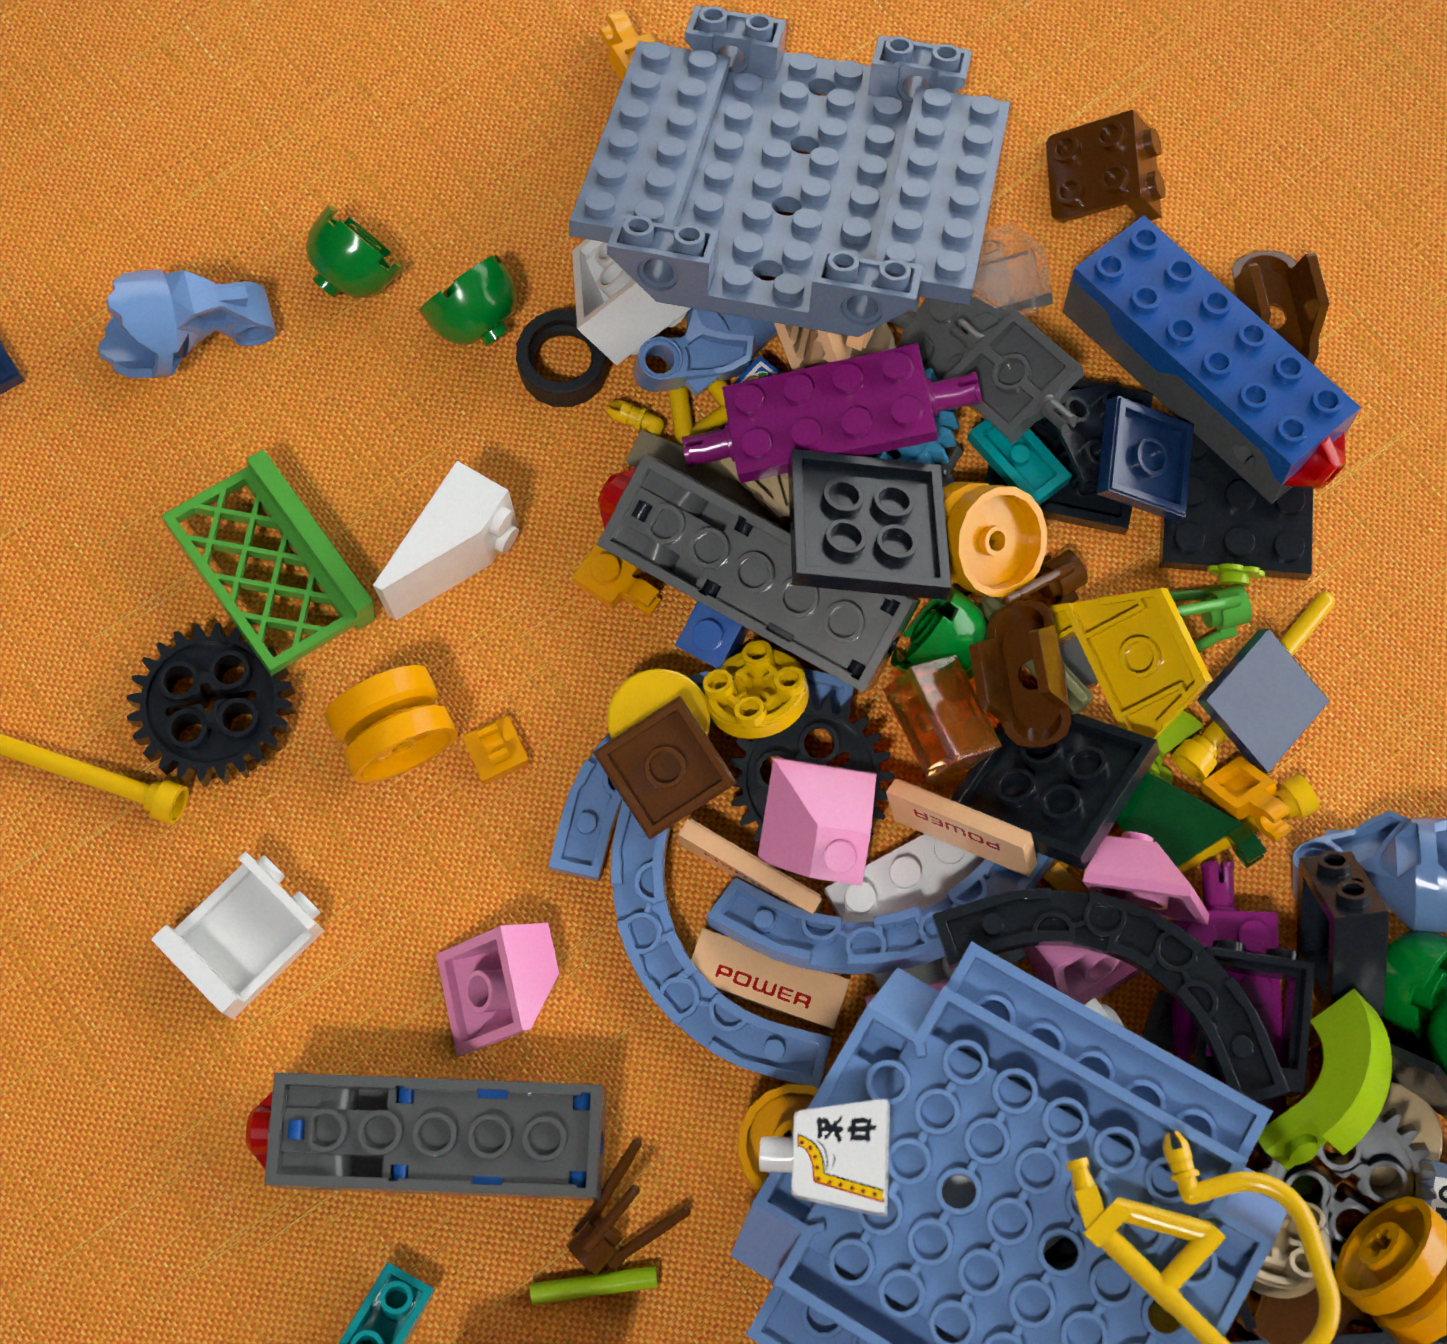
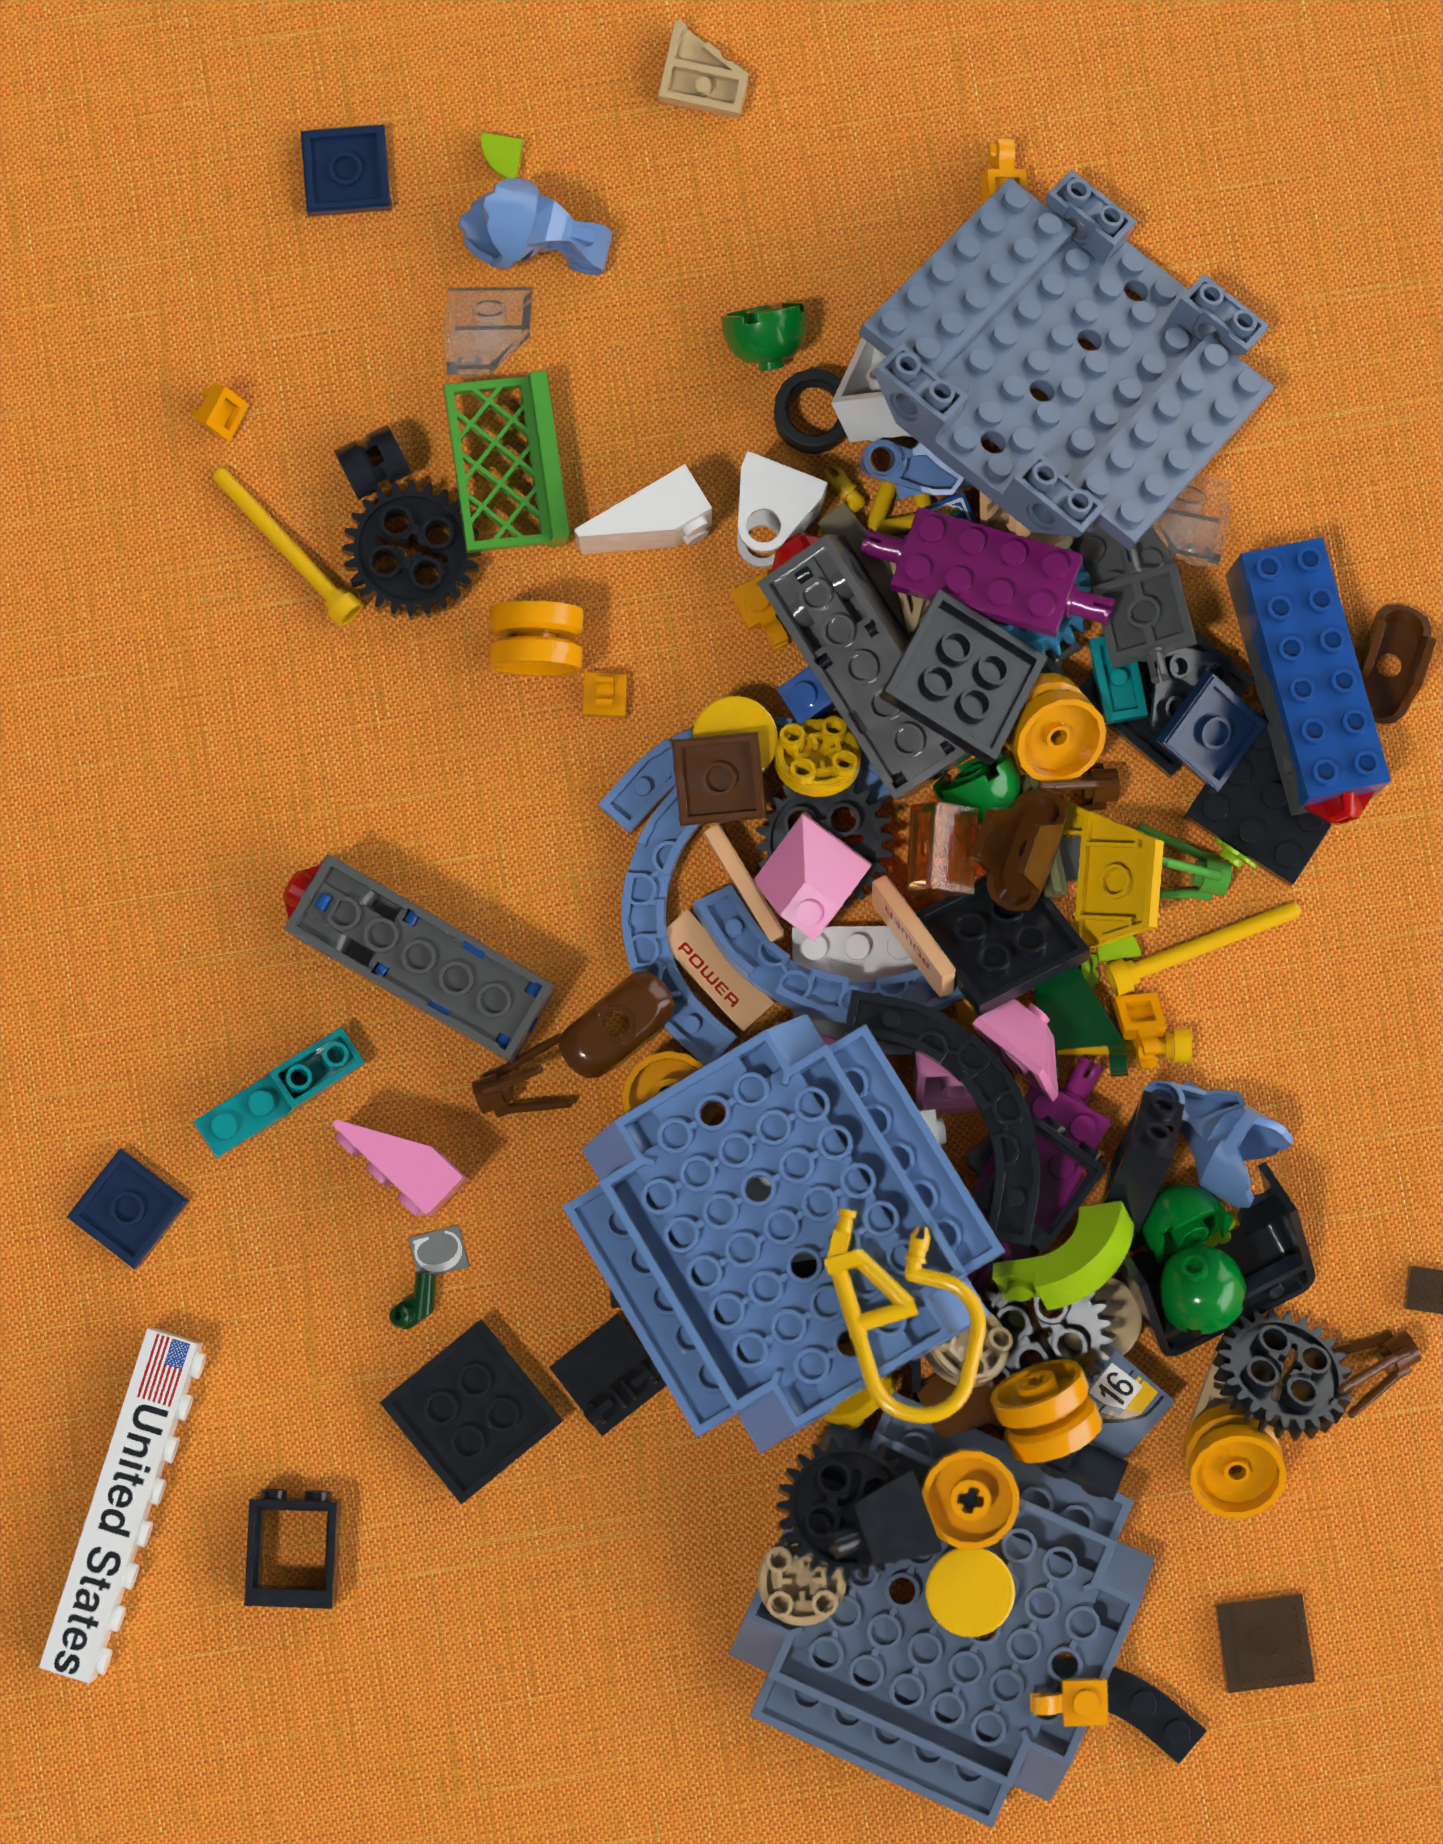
camera: 25 degrees right, 10 degrees up
(109, 265) = (502, 154): none -> lime tile
(113, 649) = (359, 469): none -> black wheel
(178, 444) = (485, 327): none -> clear slope
(241, 935) = (351, 737): white panel -> none
(280, 102) = (700, 76): none -> tan wing
(348, 257) = (690, 241): green cylinder -> none
(497, 983) = (517, 871): bright pink slope -> none
(570, 458) = (774, 499): none -> white hose
(593, 1285) = (477, 1119): lime piece -> none
(686, 1136) = (592, 1050): none -> reddish brown piece
(836, 1156) = (686, 1120): white torso -> none
(1105, 168) = (1326, 476): reddish brown bracket -> none
(1263, 700) = (1196, 961): tile -> none

